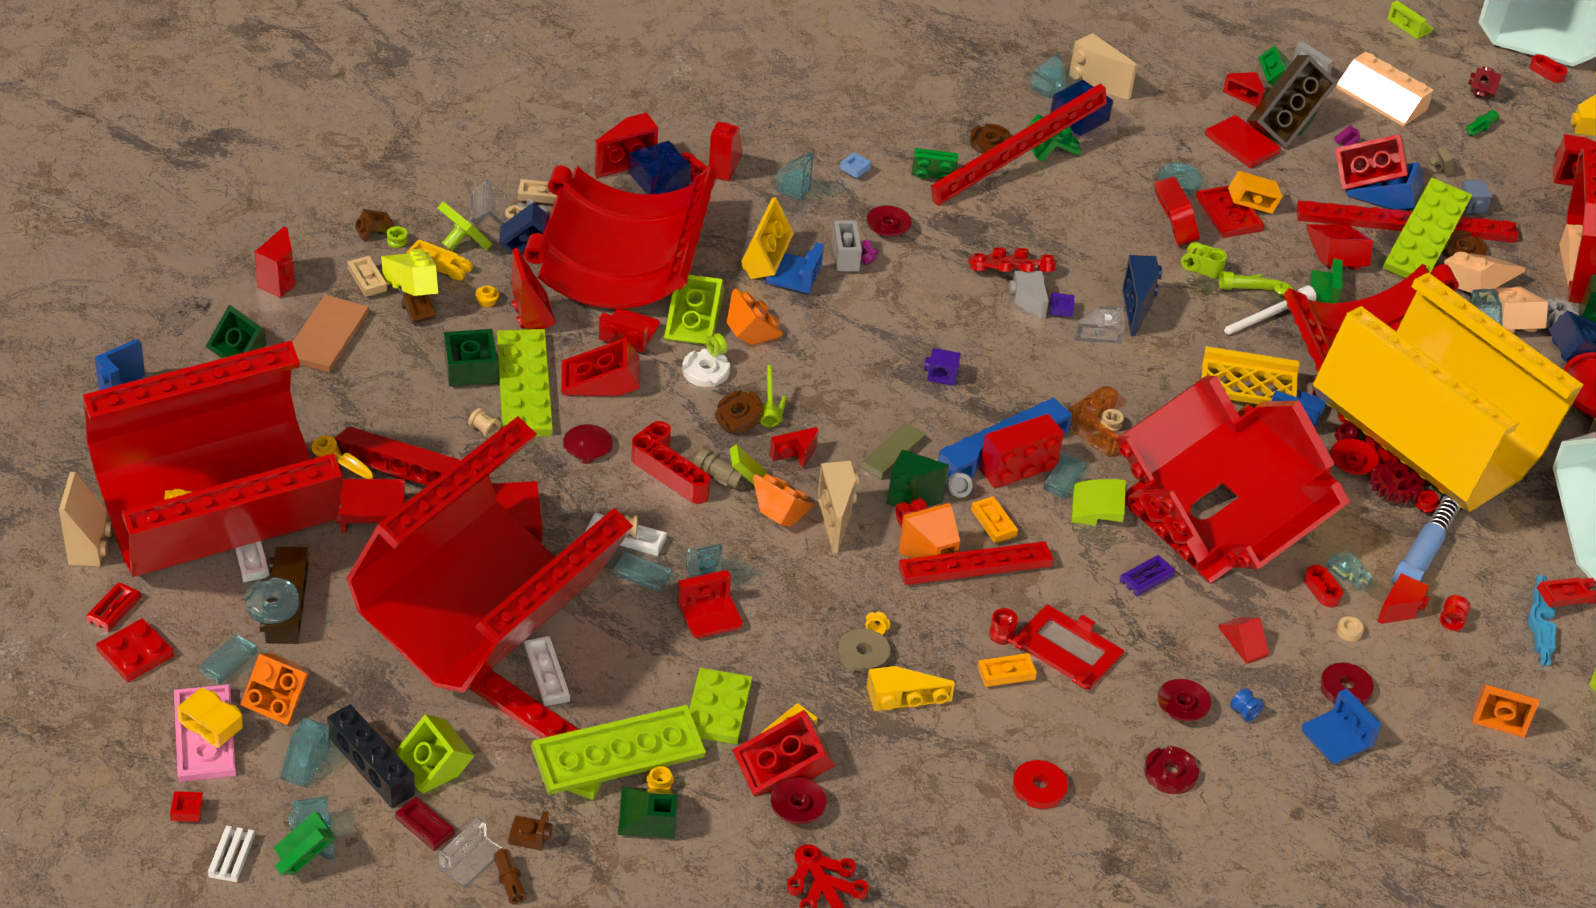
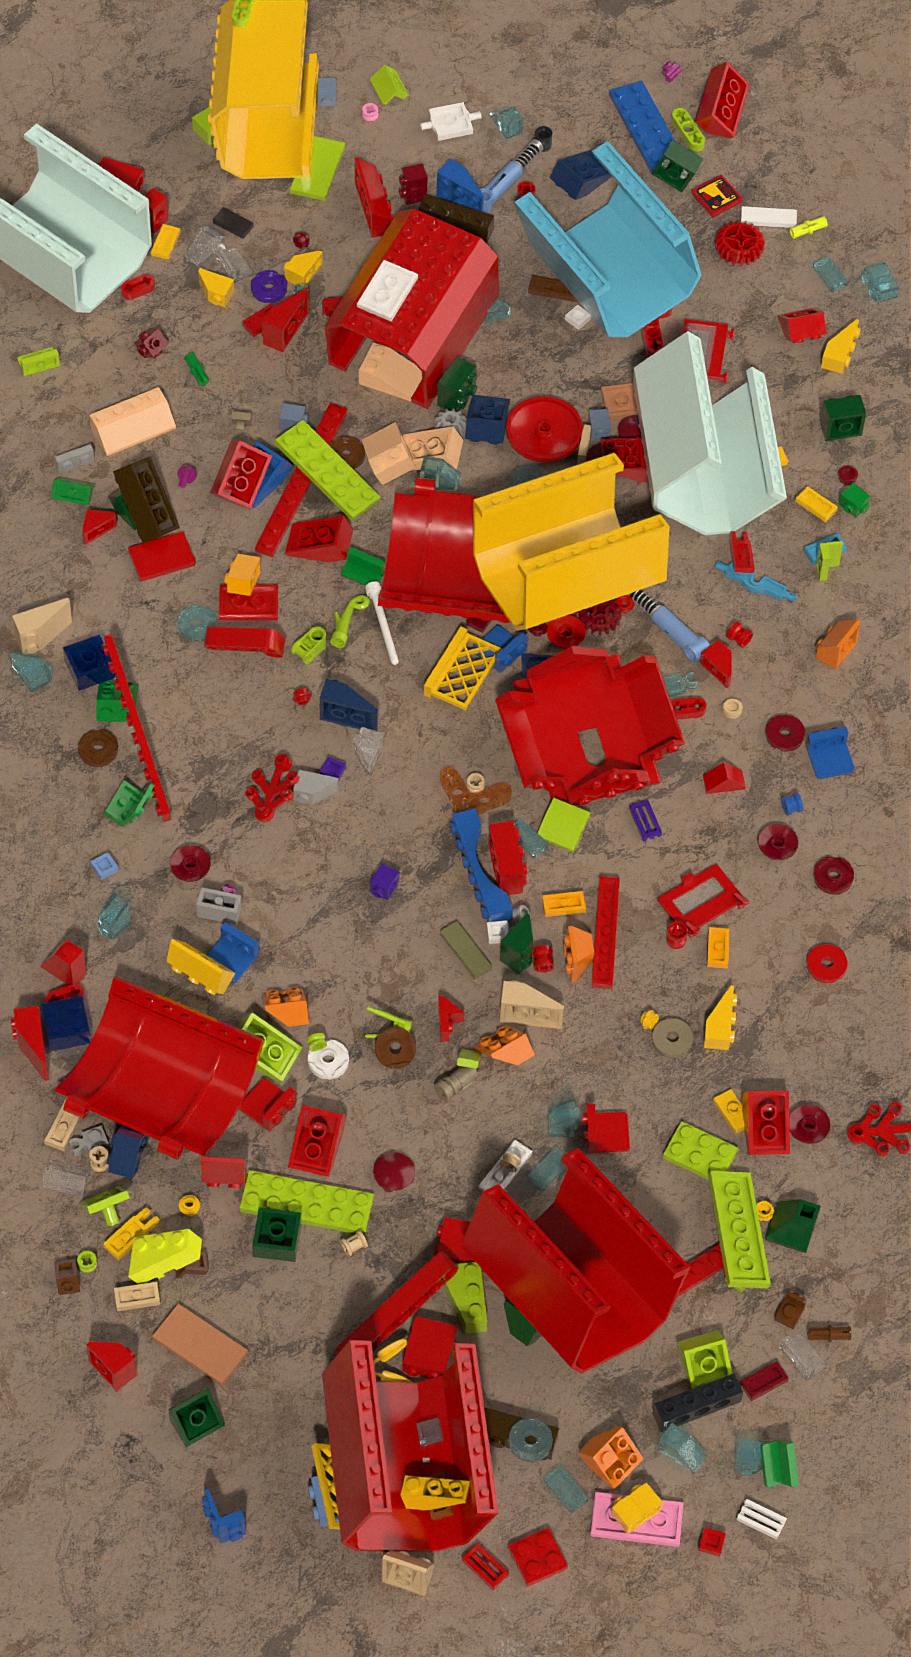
camera: 70 degrees left, 15 degrees up
(653, 455) = (468, 1104): red beam -> none

